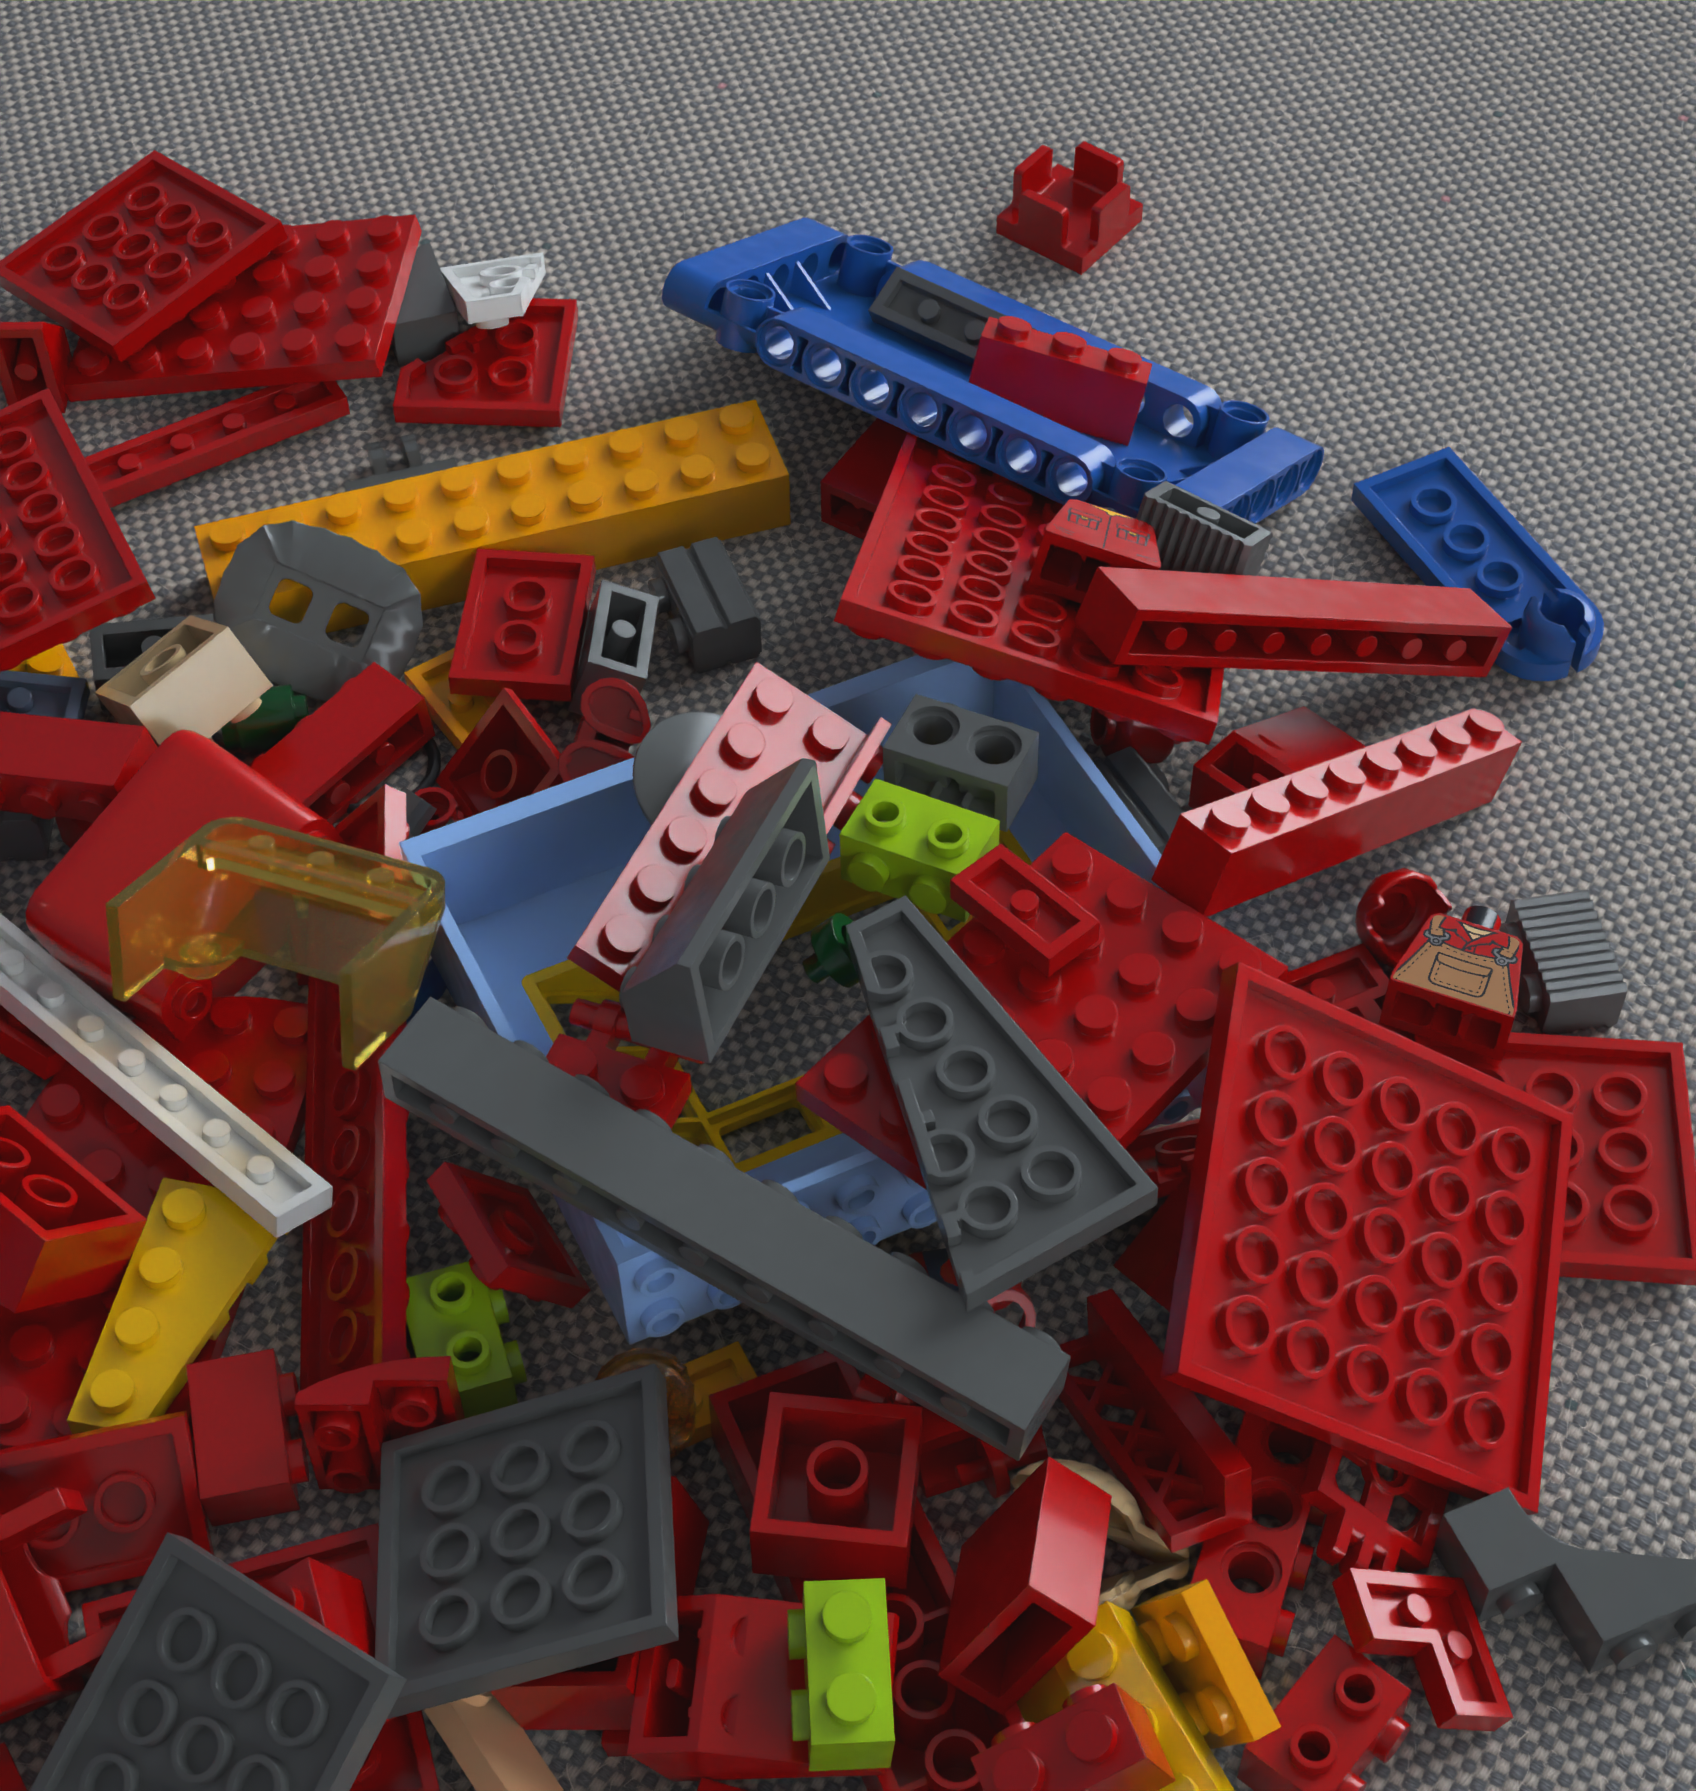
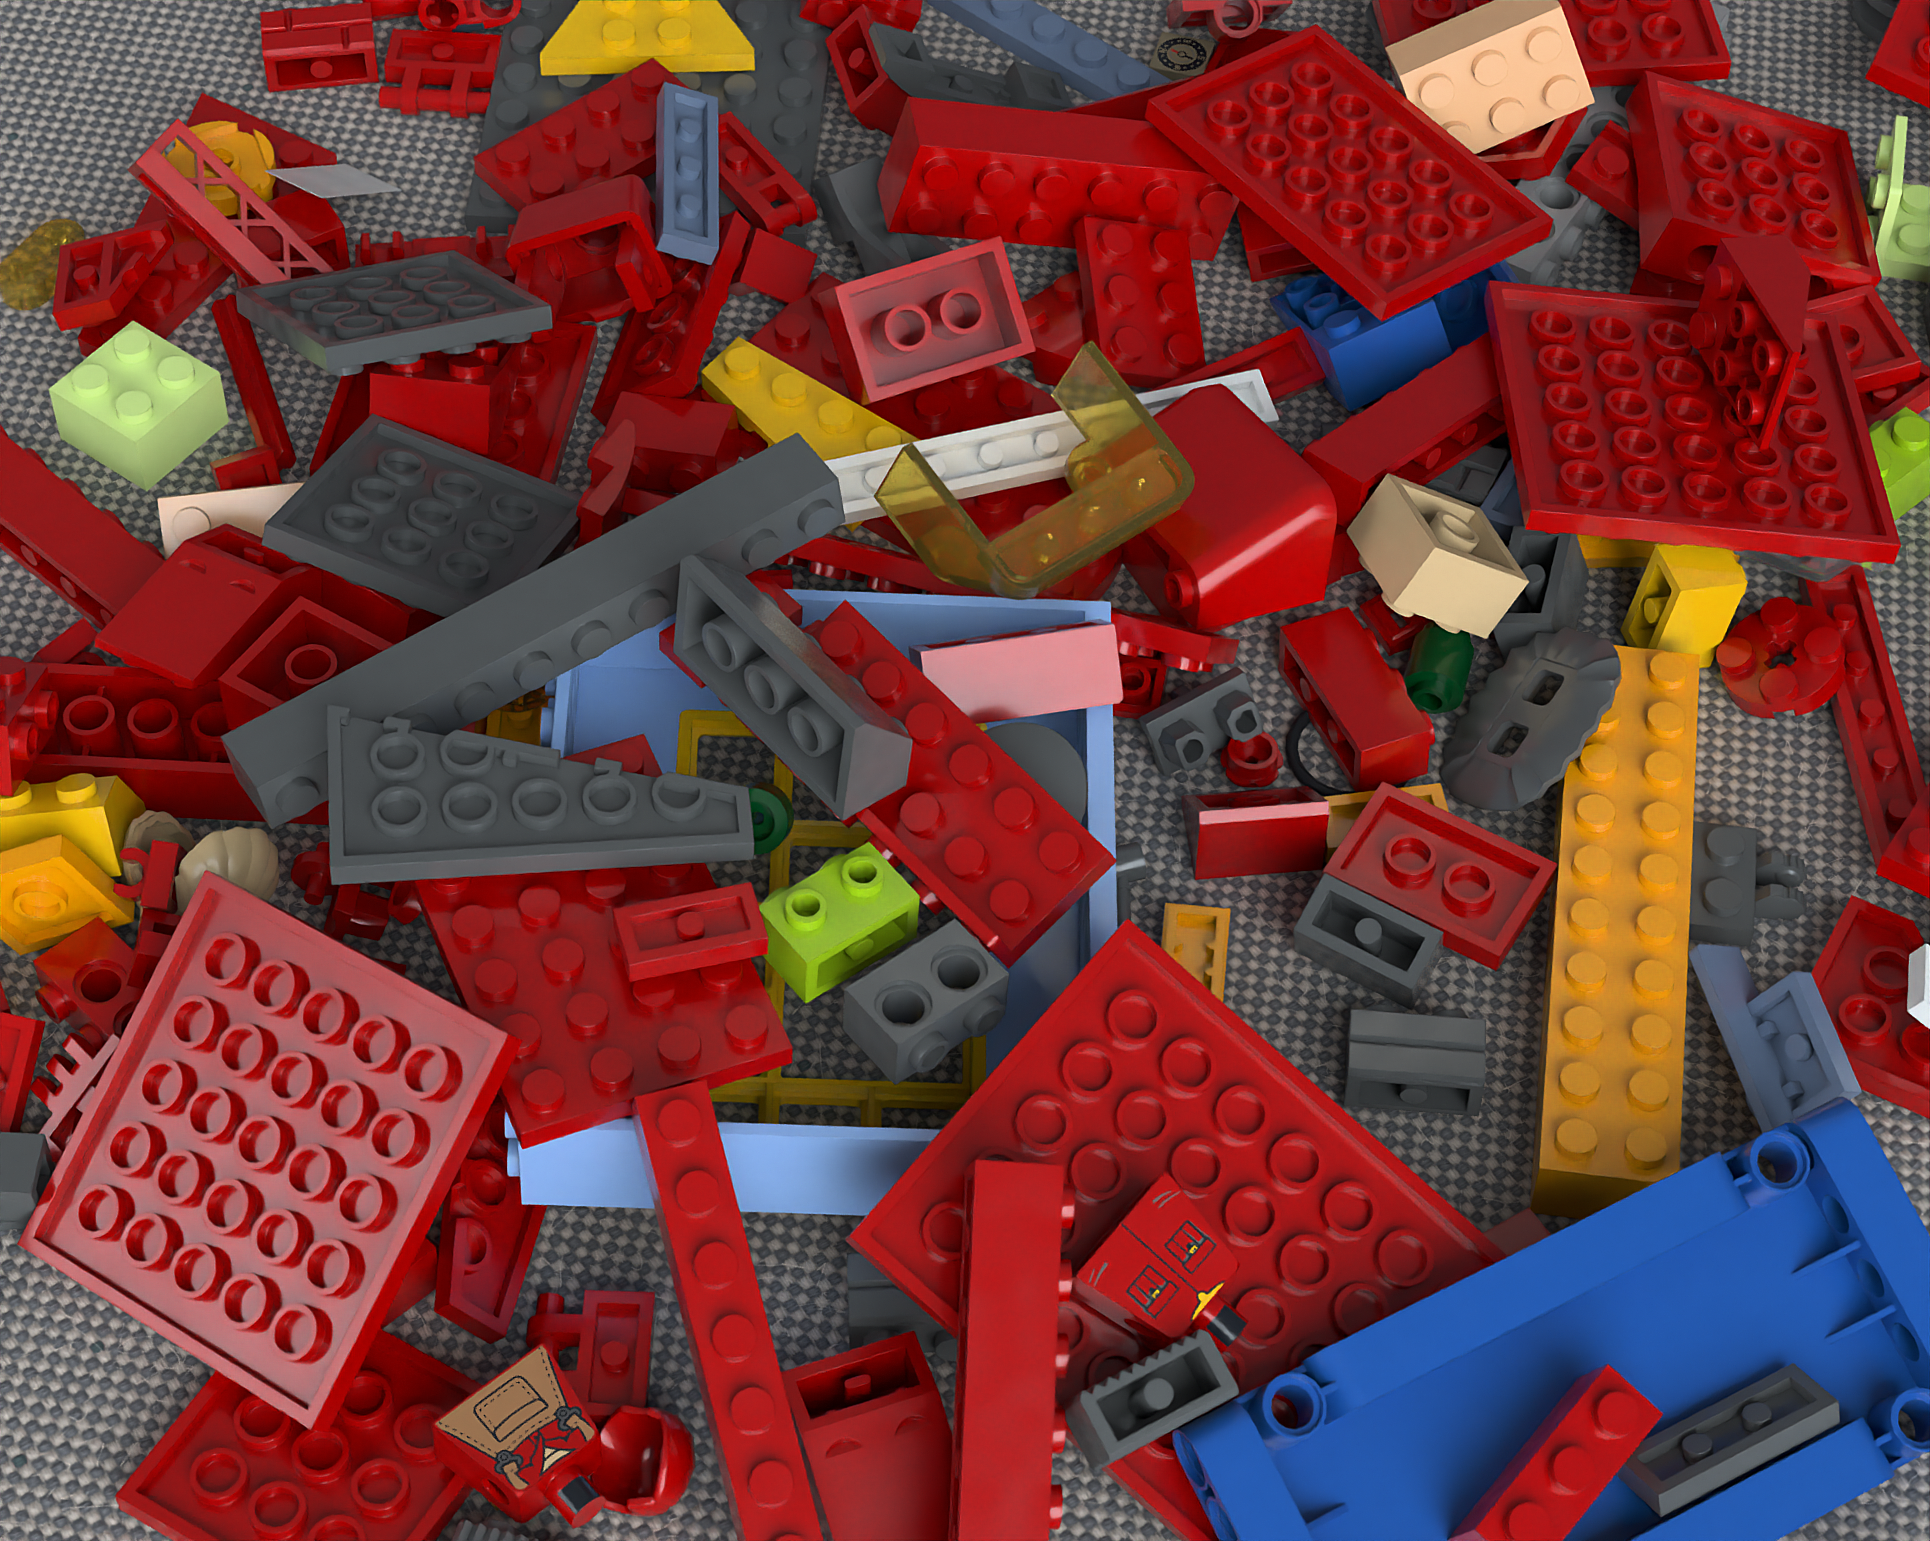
camera: 115 degrees right, 0 degrees up
(154, 549) = (1685, 600): none -> yellow brick
(160, 475) = (1777, 630): none -> red plate
(530, 853) = (1026, 670): none -> panel
(583, 386) = (1776, 1039): none -> sand blue bracket
(610, 724) = (1201, 837): red piece -> none
(847, 1674) = (152, 608): lime brick -> none
(1026, 1586) = (155, 768): red brick -> none
(1135, 1549) = (159, 872): none -> red tile

